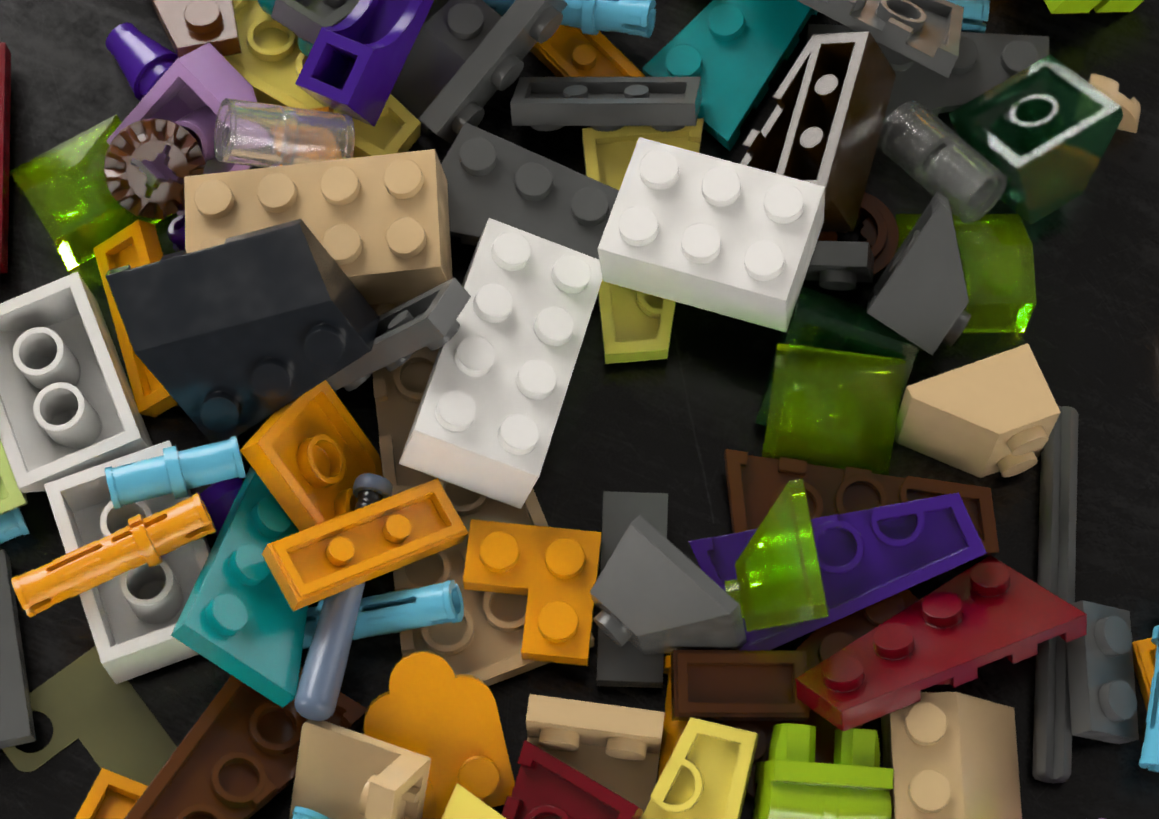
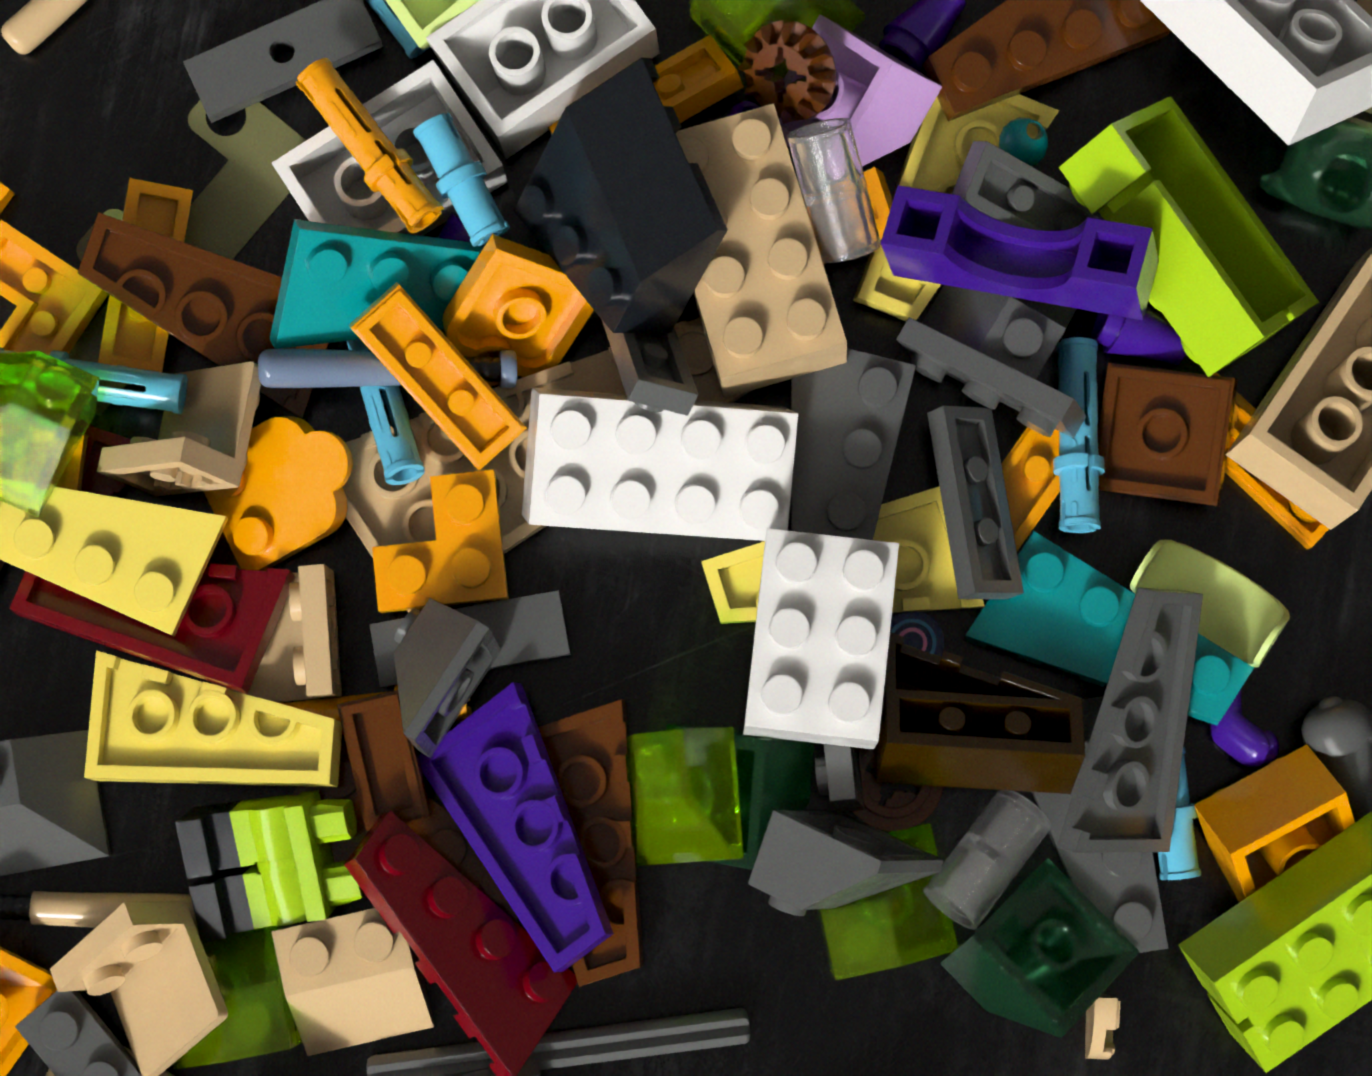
camera: 80 degrees right, 15 degrees up
(780, 567) = (482, 777): clear neon green slope -> none
(981, 415) = (706, 950): tan slope -> none

